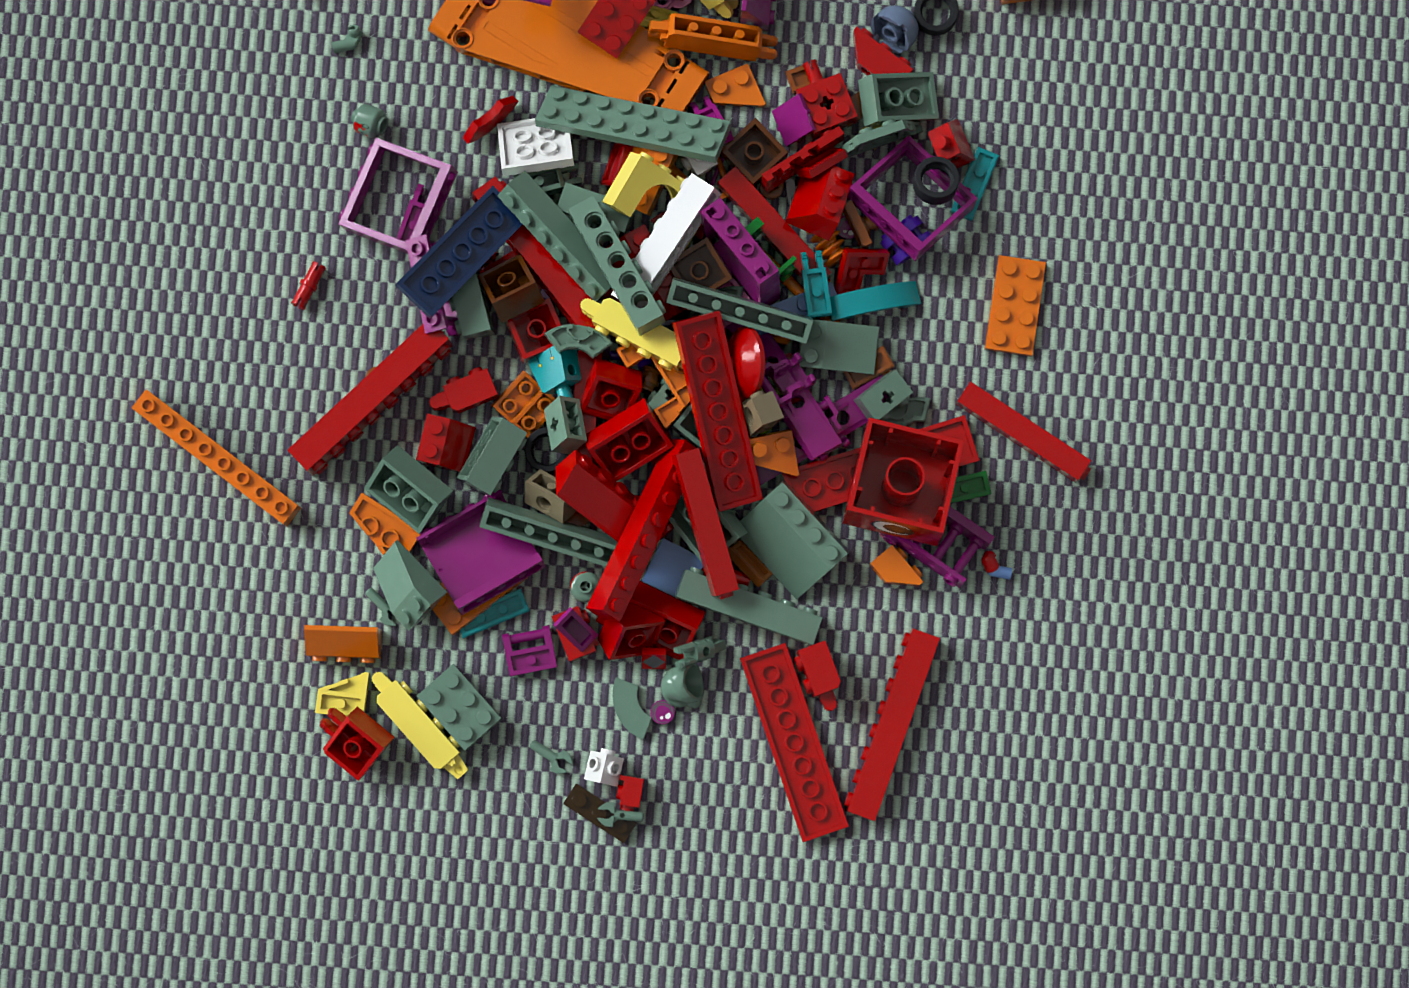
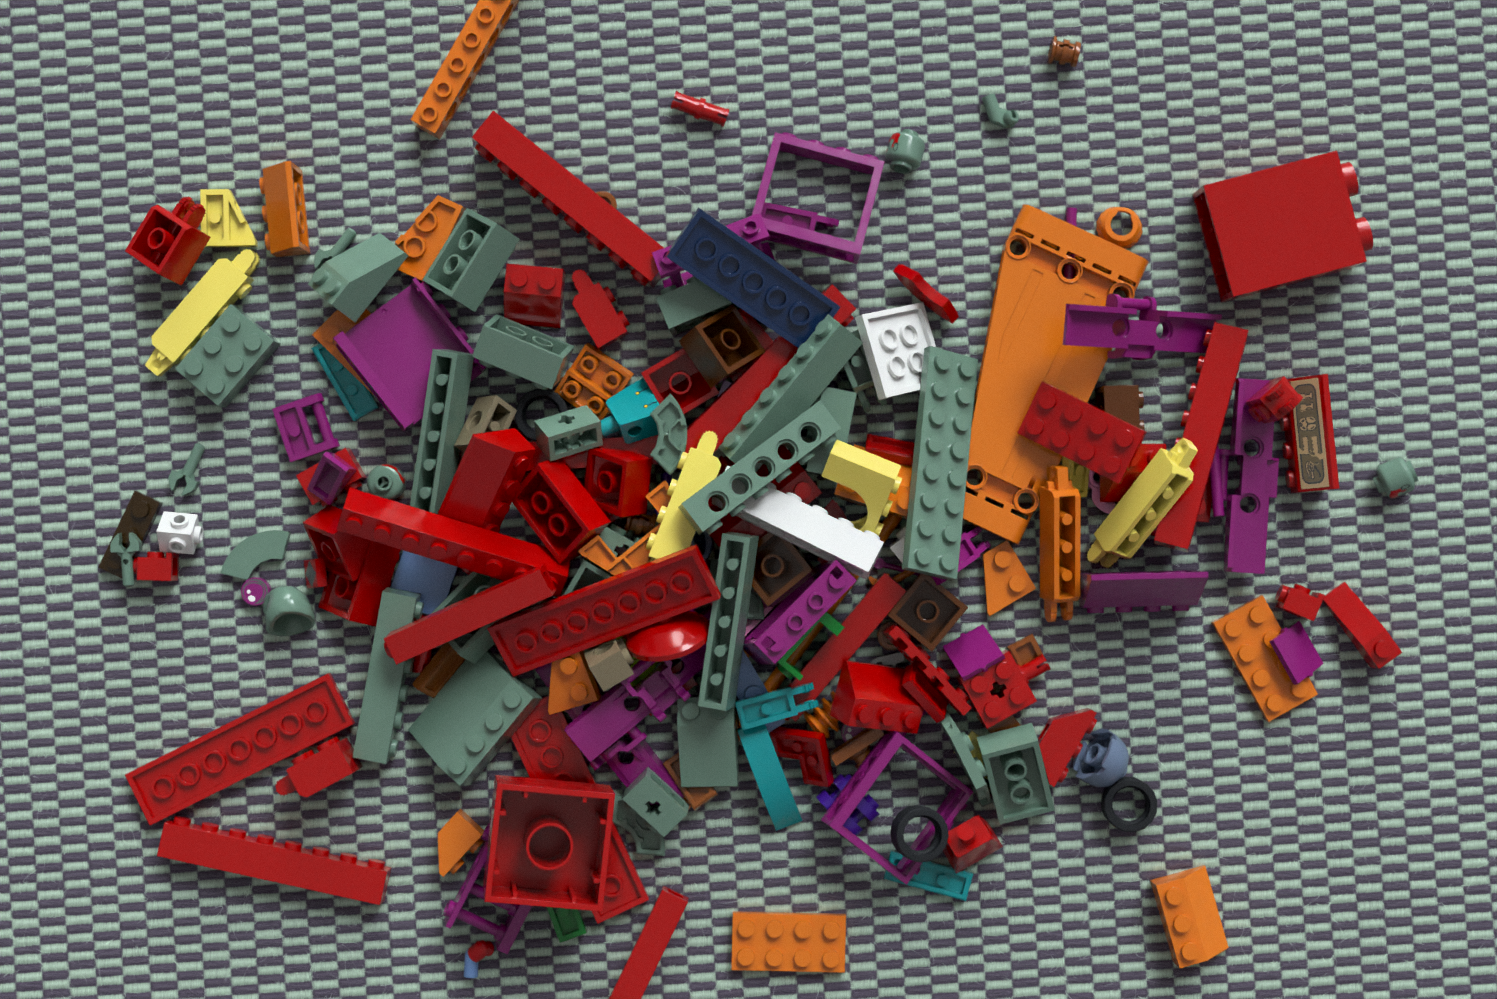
camera: 85 degrees right, 5 degrees up
(698, 651) = (326, 624): sand green hinge -> none

